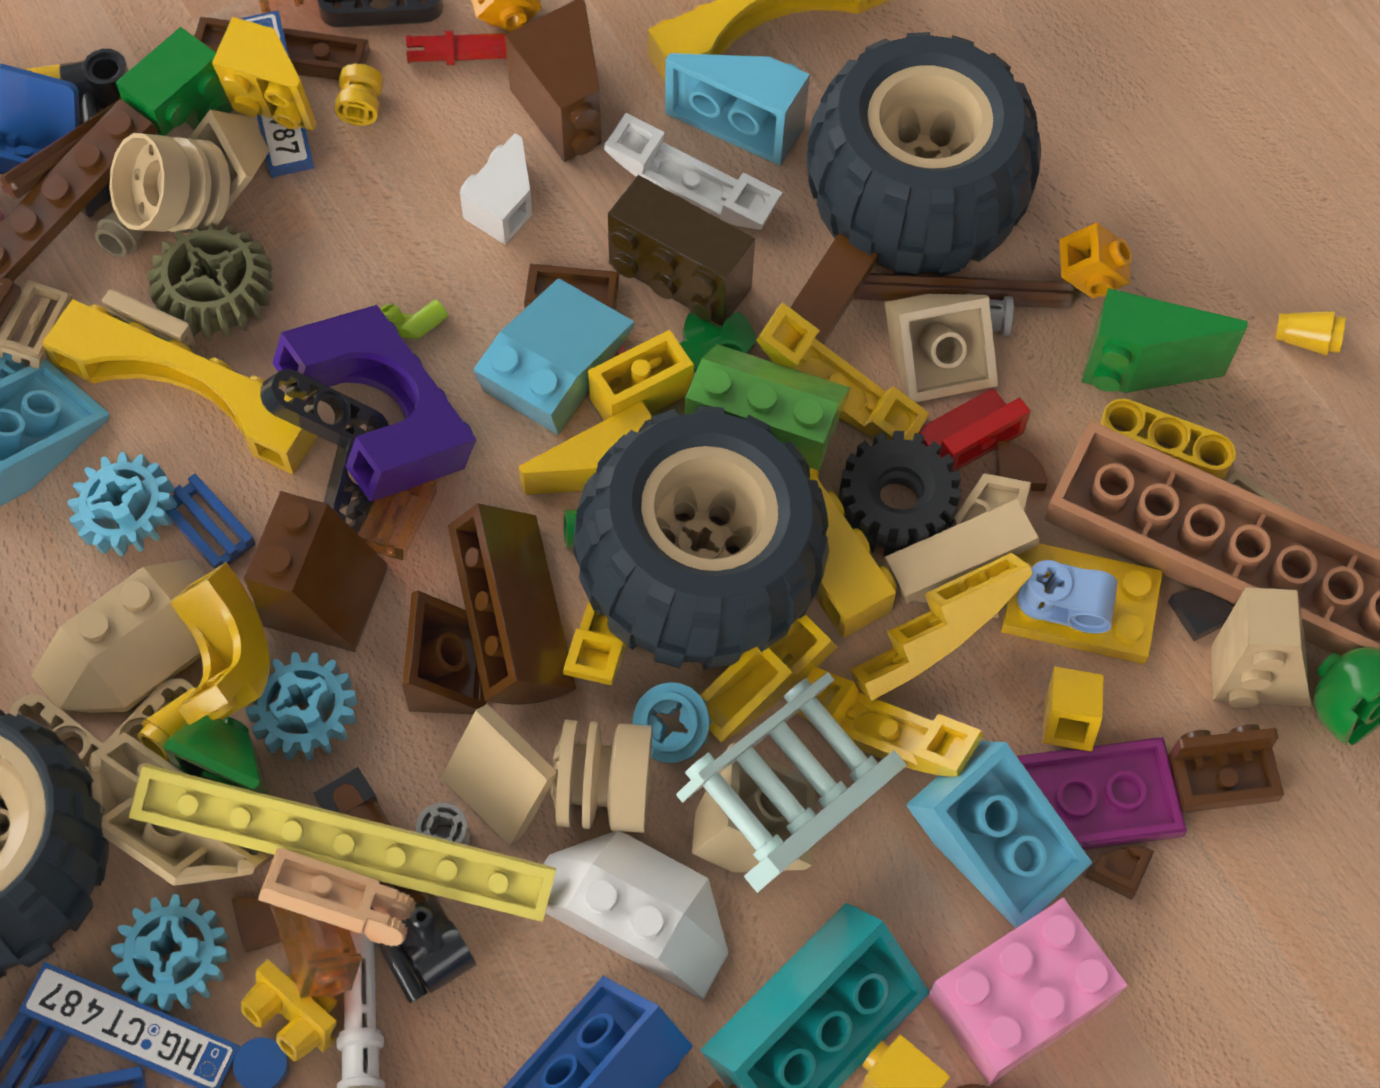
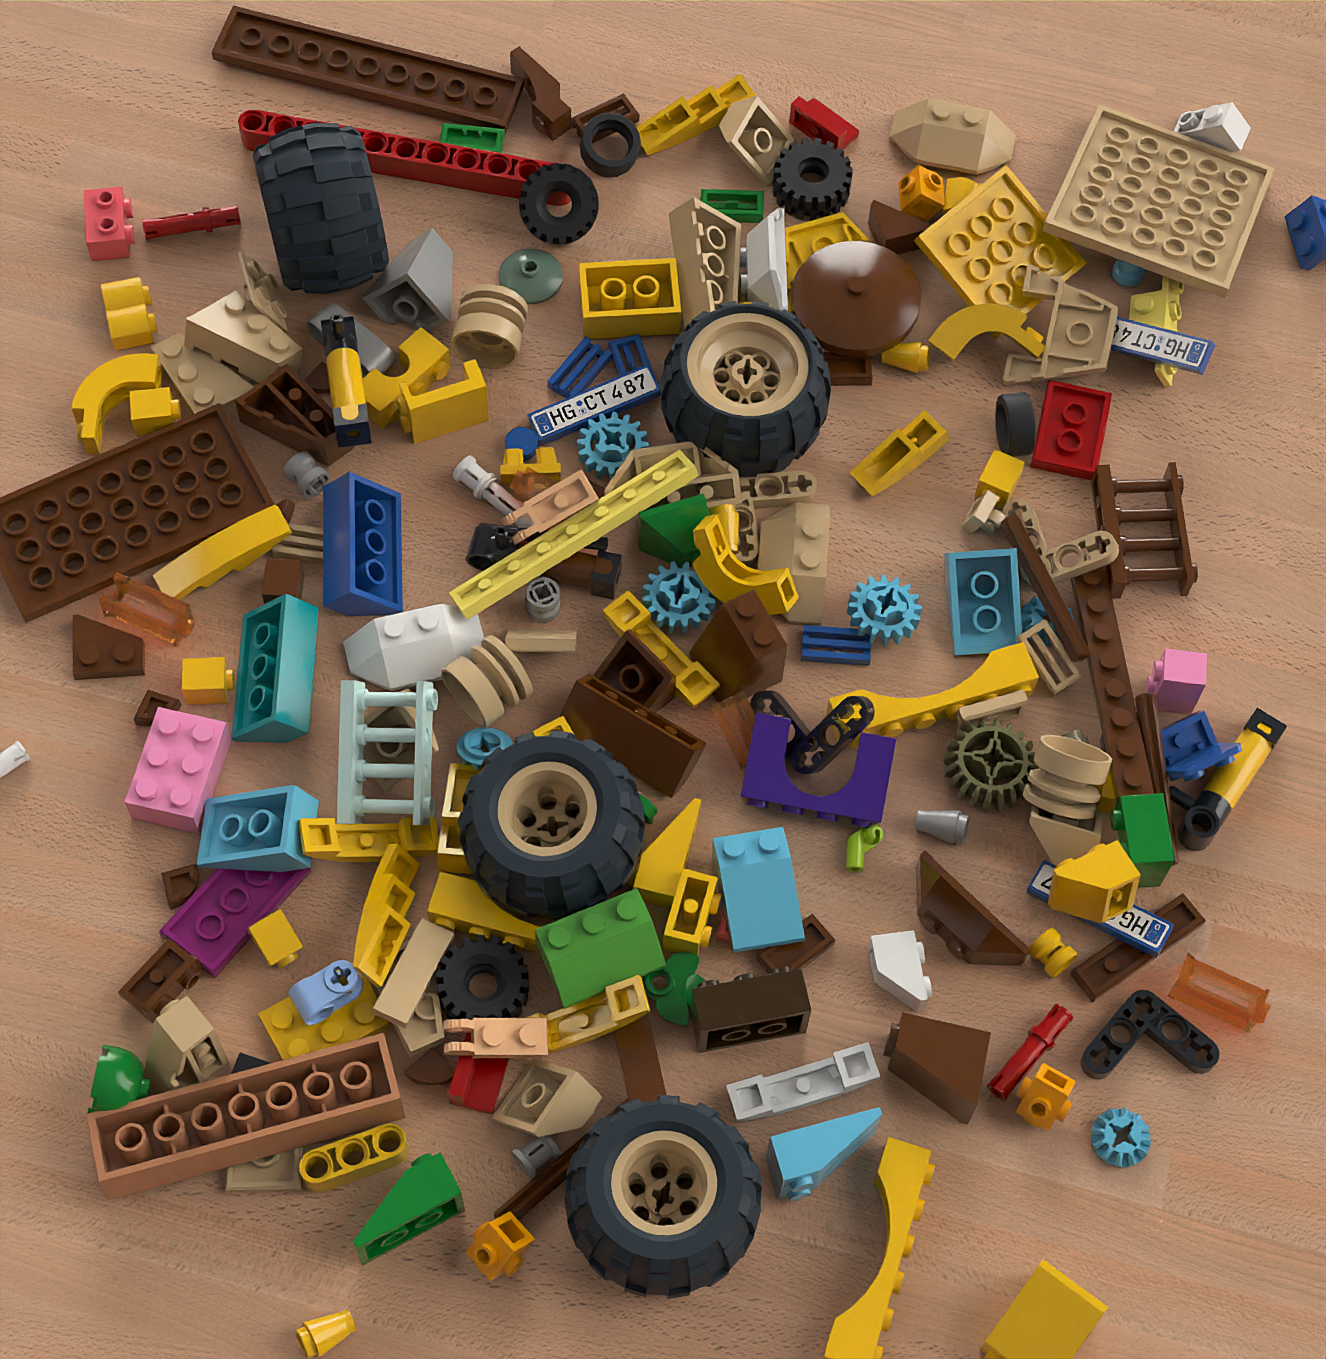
camera: 135 degrees right, 0 degrees up
(316, 269) = (945, 825): none -> light grey cone
(381, 708) = (692, 679): none -> yellow slope
(401, 185) = (962, 920): none -> reddish brown wedge
(940, 416) = (499, 1037): none -> light nougat hinge

